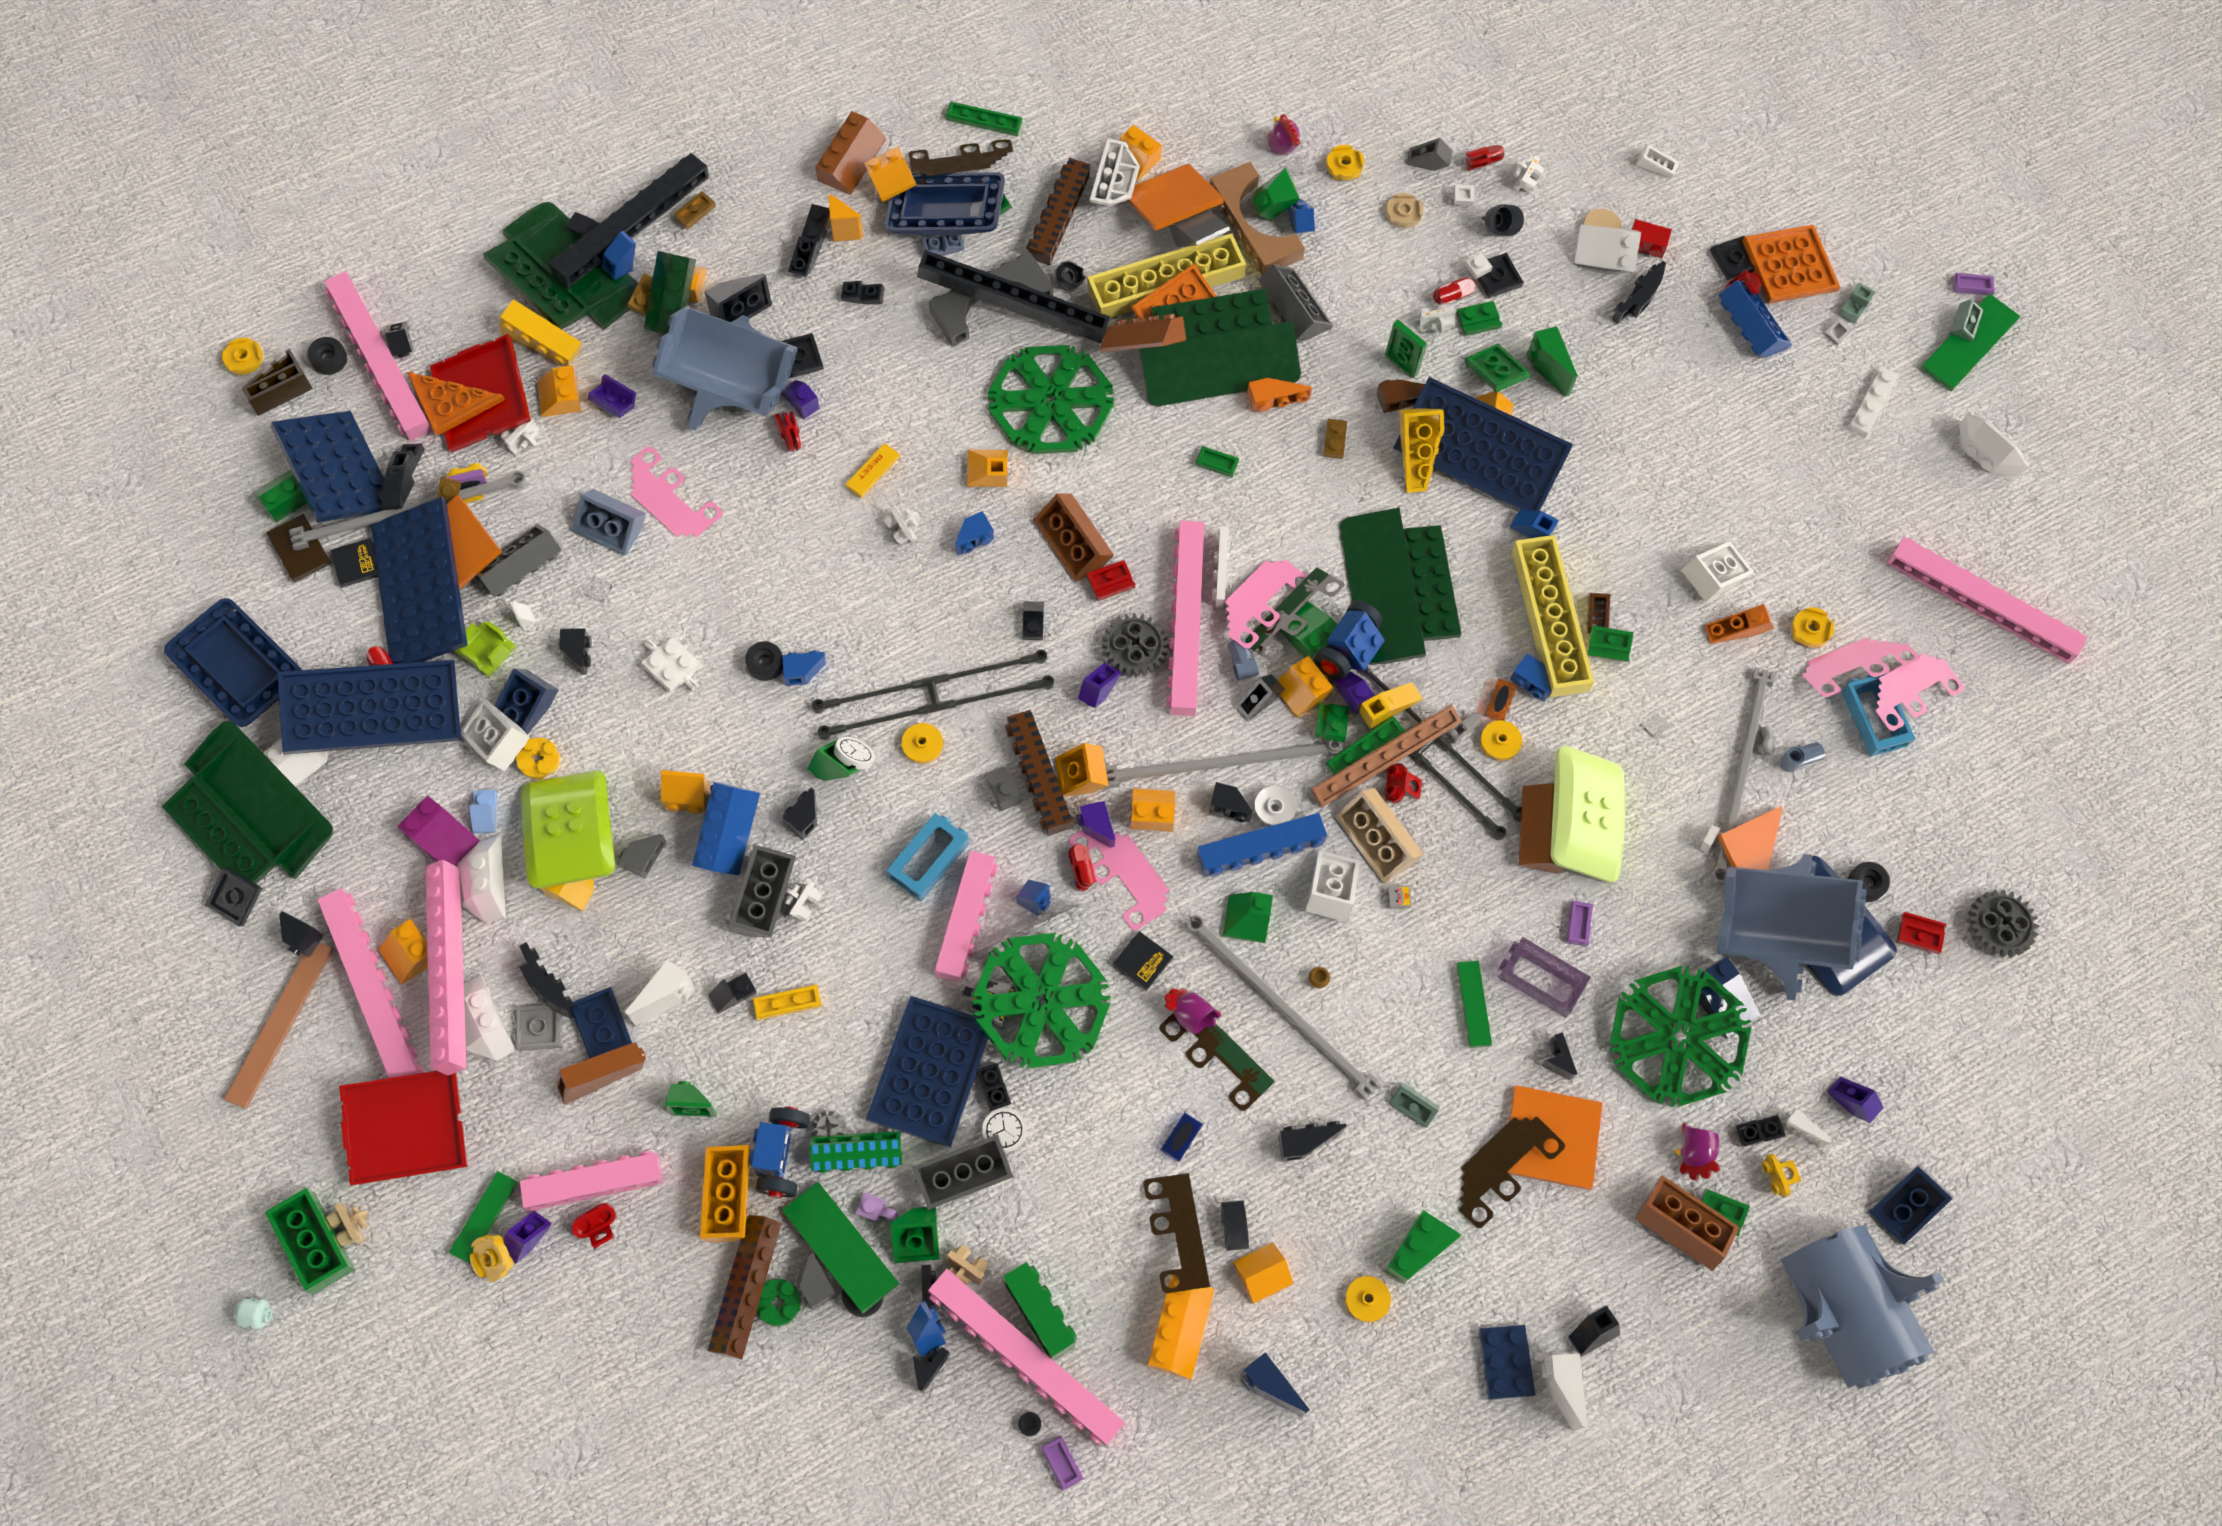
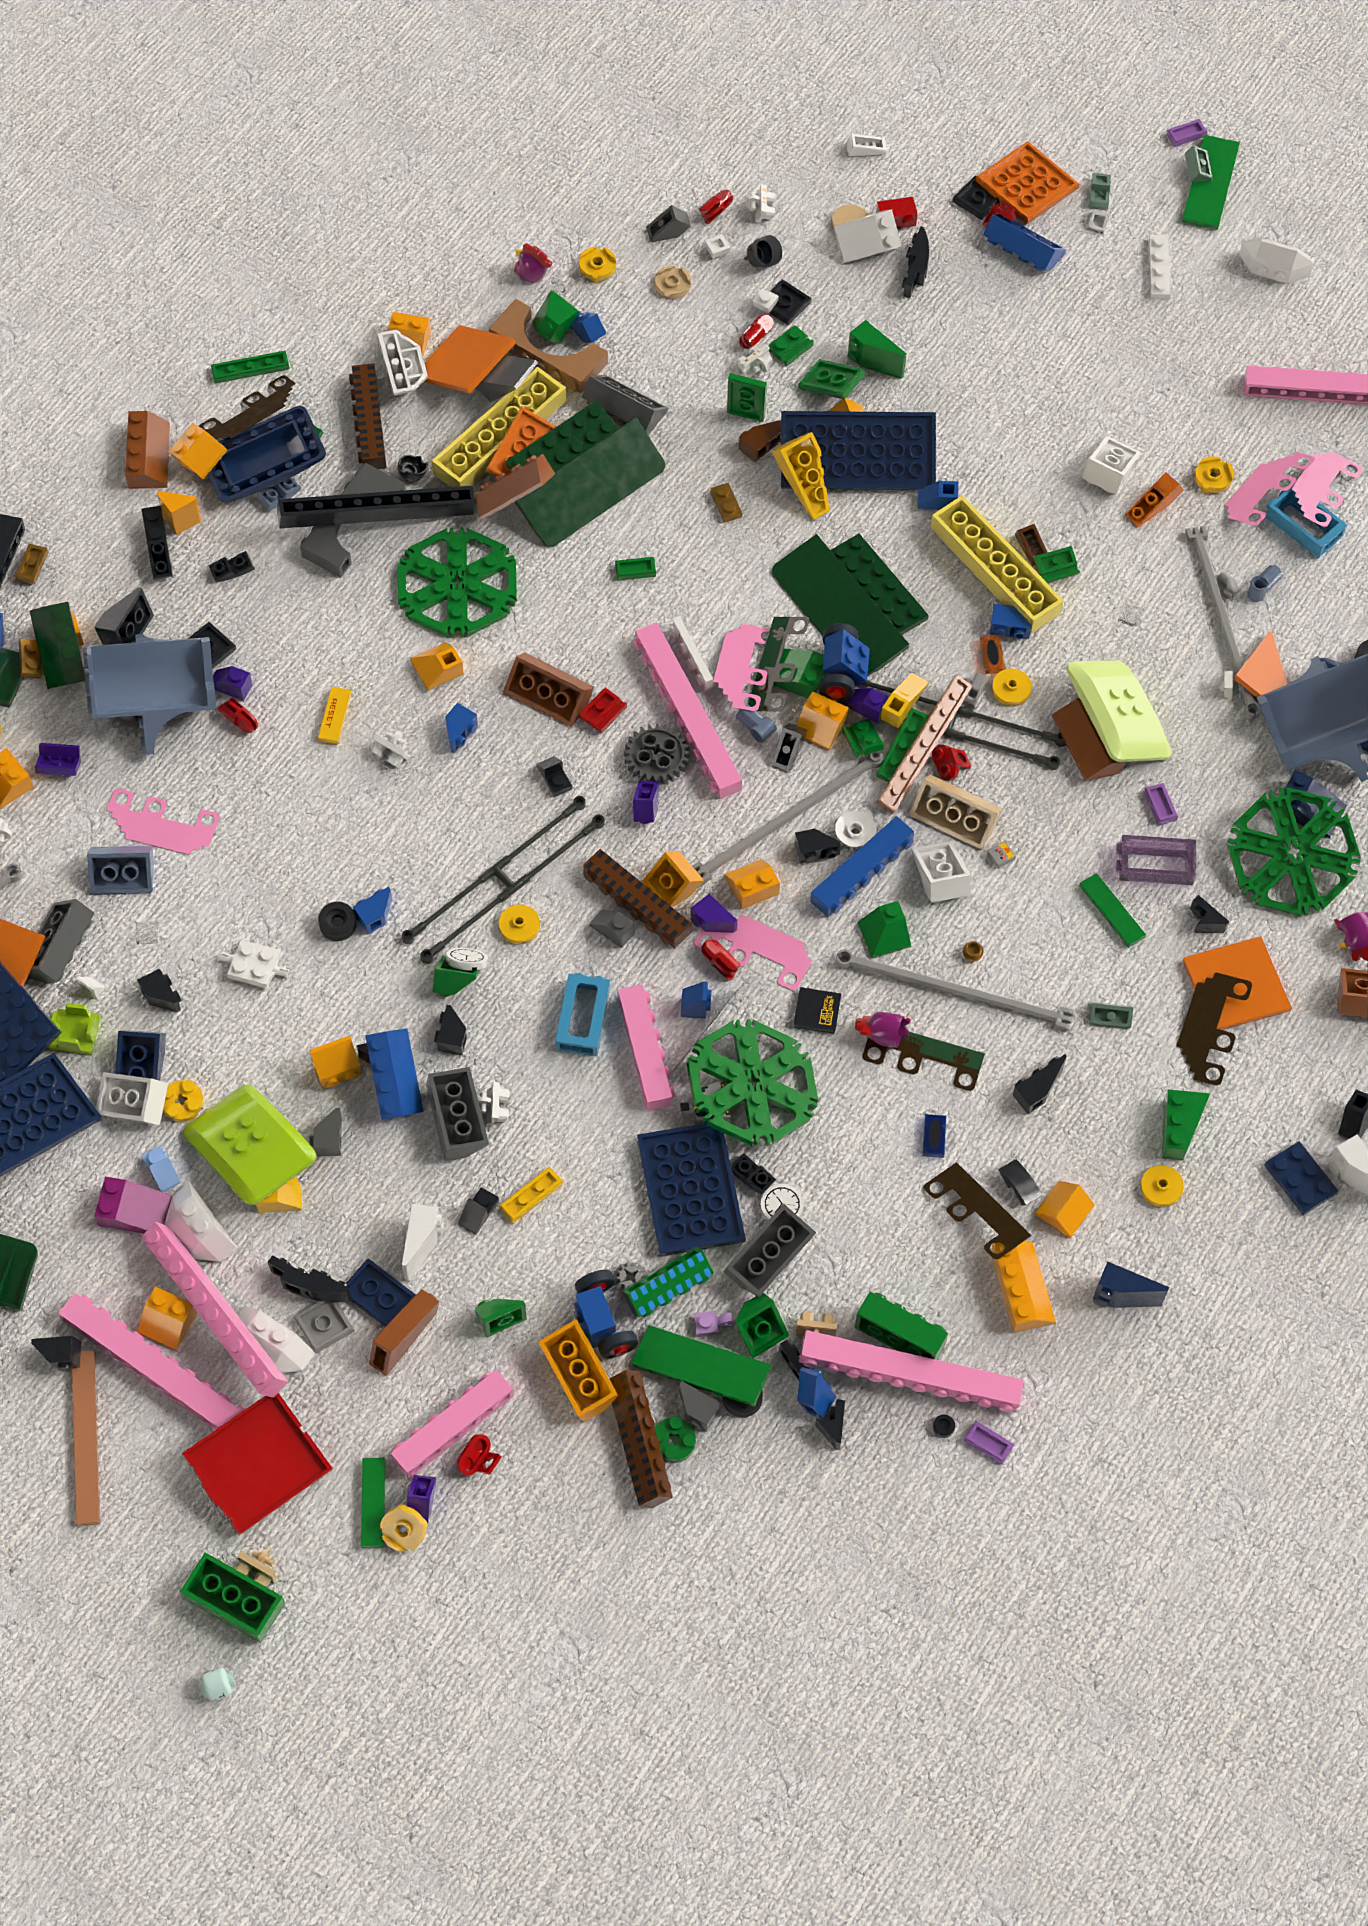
camera: 25 degrees left, 5 degrees down
(1273, 393) = (651, 487): orange slope -> none

